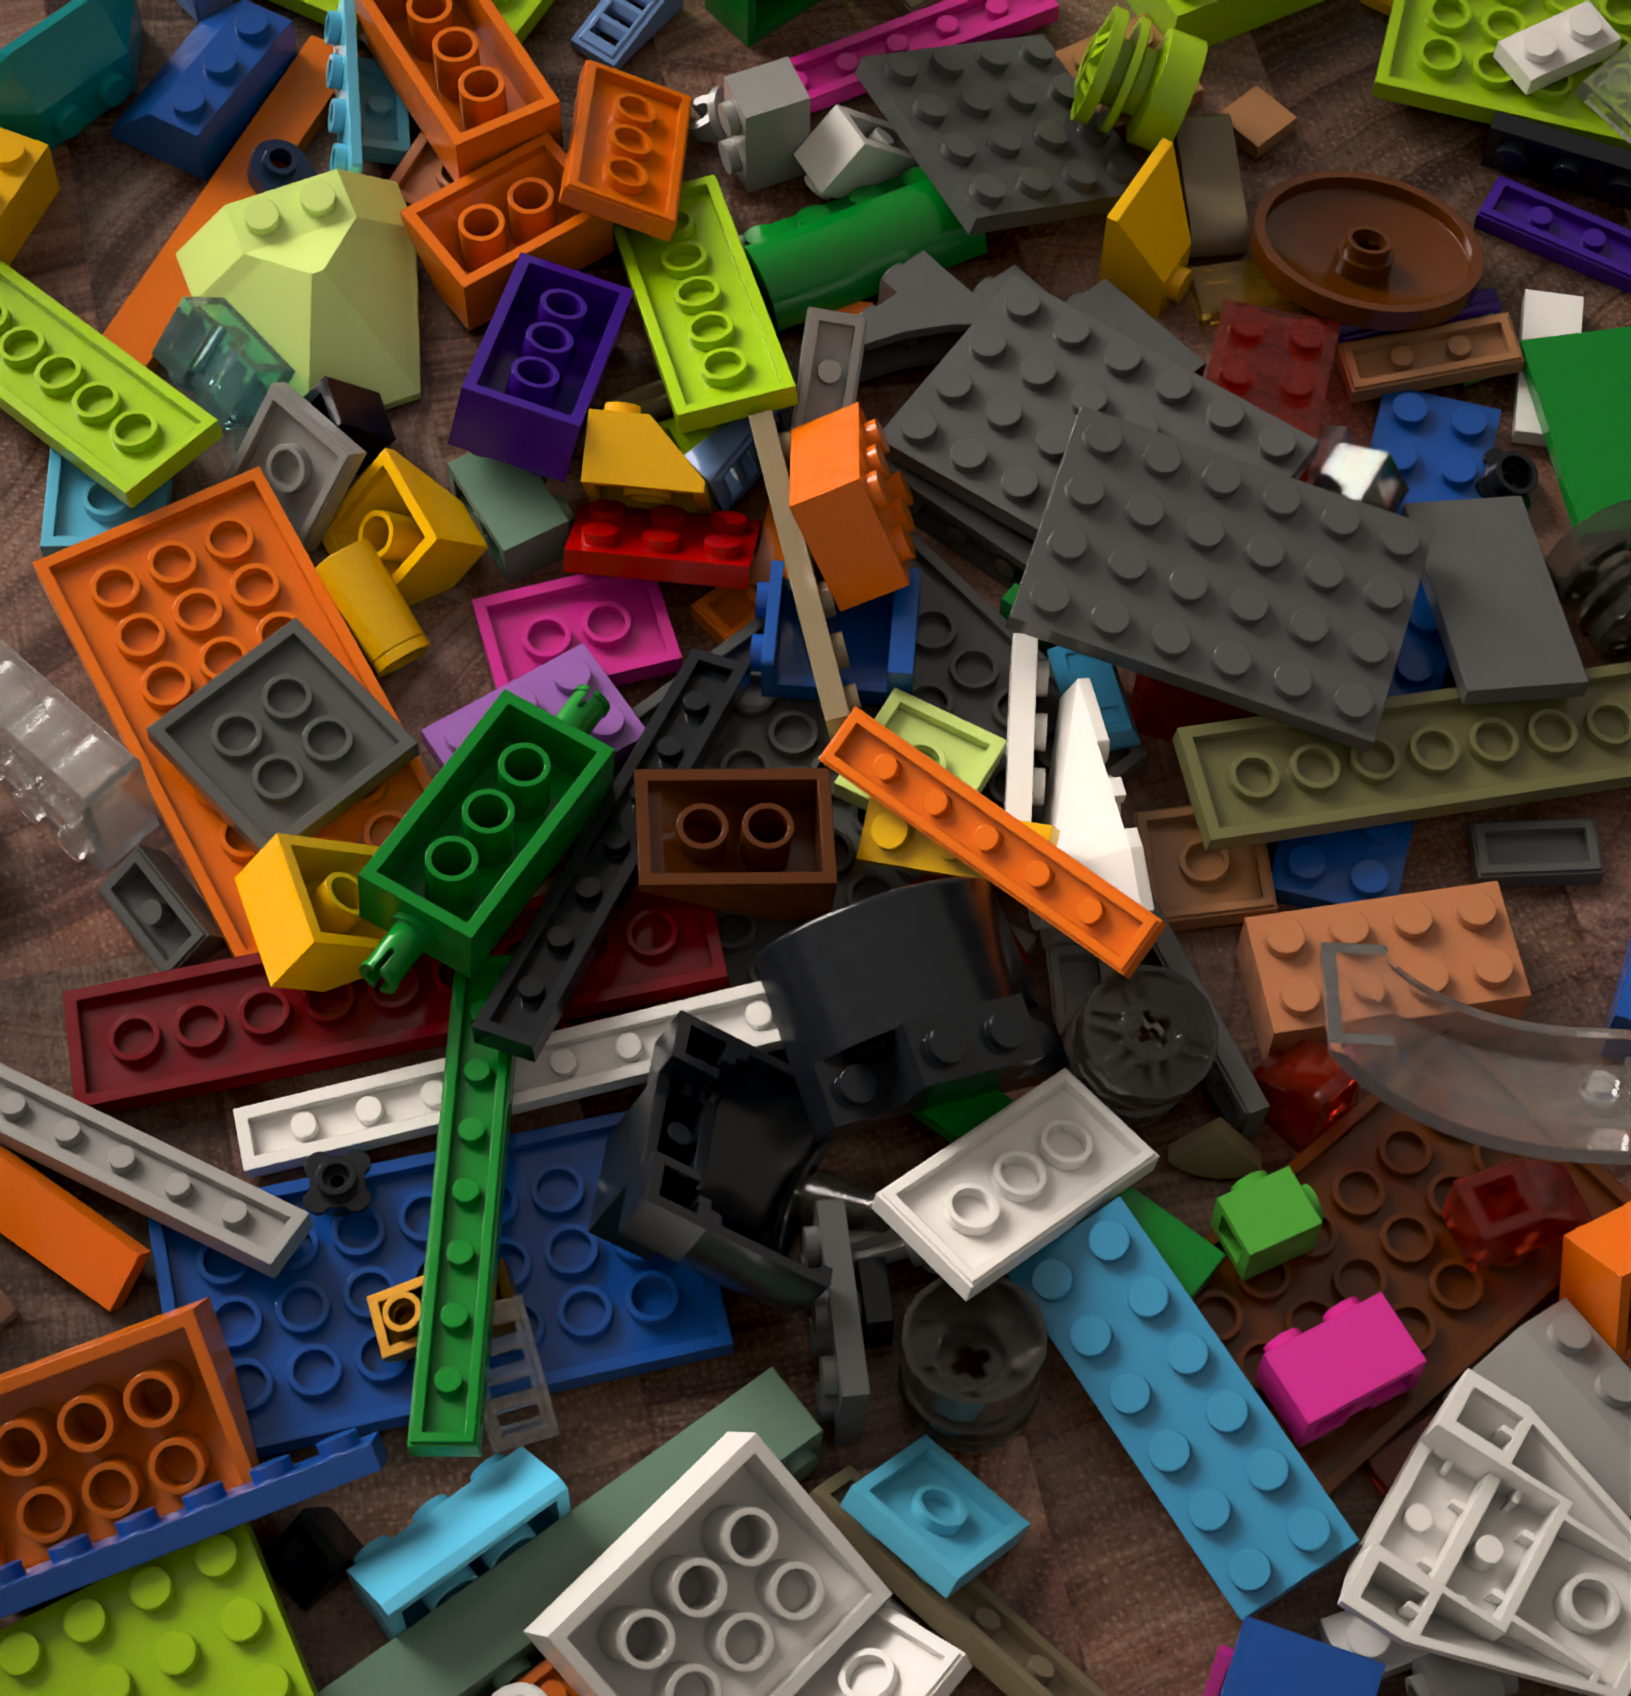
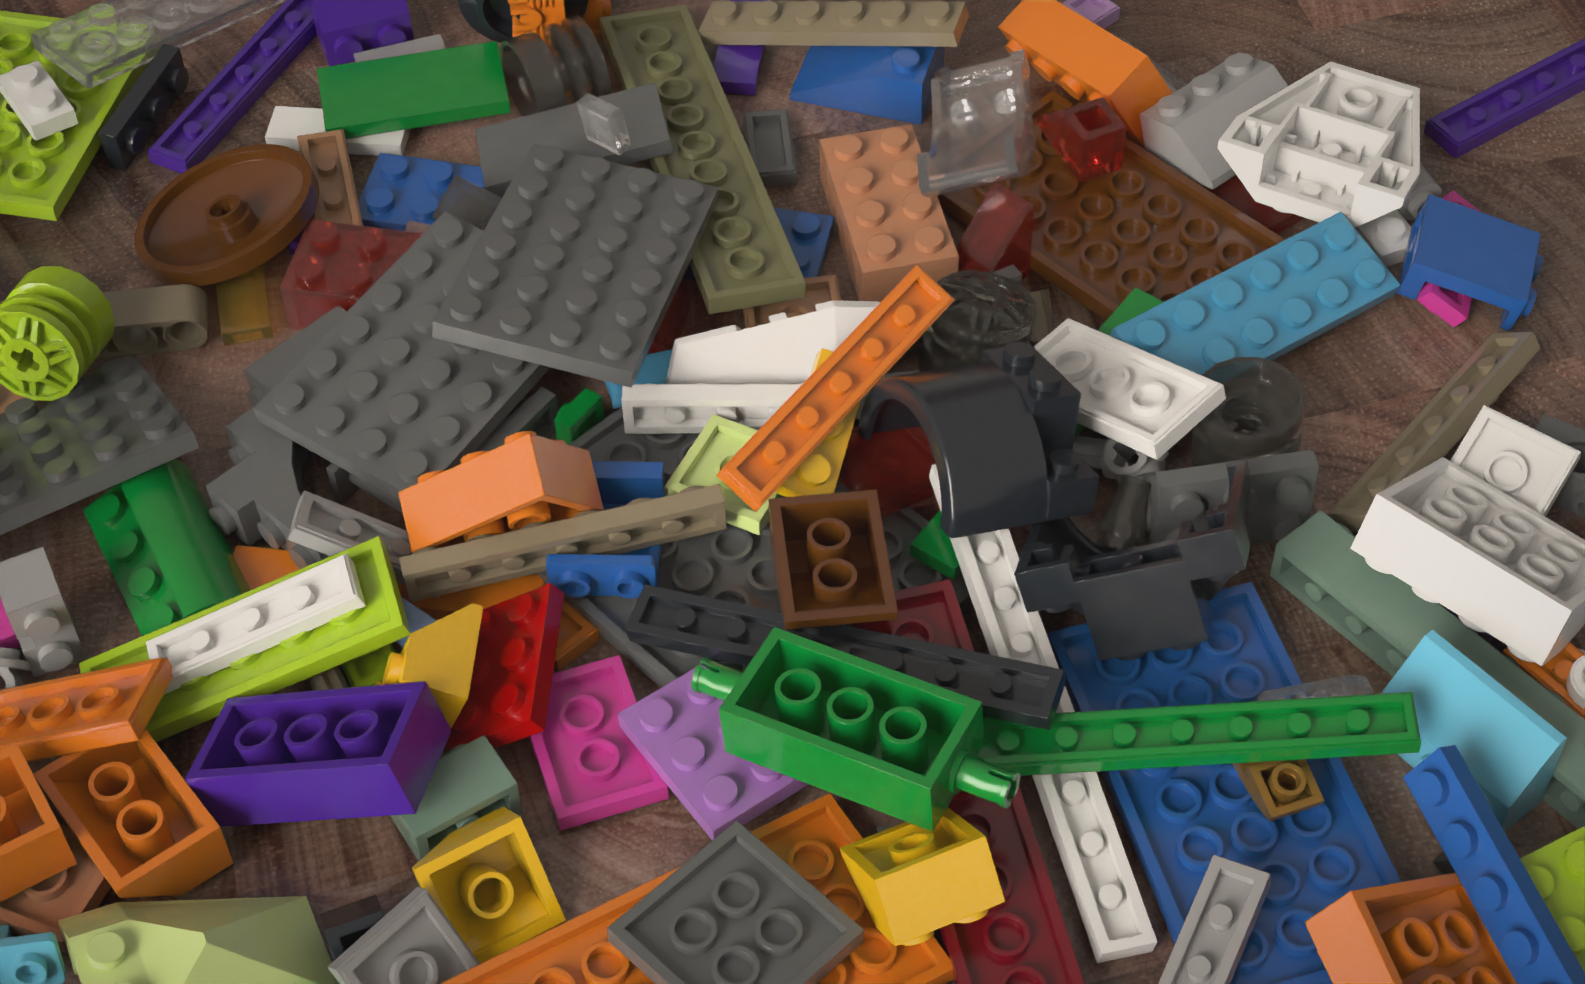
camera: 90 degrees left, 10 degrees down
(342, 1200) = (1168, 867): black plate -> none
(373, 607) = (571, 888): yellow pin -> none
(714, 301) = (259, 621): none -> white tile
(851, 153) = (77, 559): white slope -> none
(935, 1515) = (1371, 447): medium azure plate -> none
(1150, 236) = (193, 348): yellow slope -> none
(1266, 1221) = (1109, 262): bright green brick -> none
(1339, 1367) = (1213, 221): dark pink brick -> none
(1478, 608) = (604, 124): none -> clear tile
(1507, 475) = (446, 147): black plate -> none

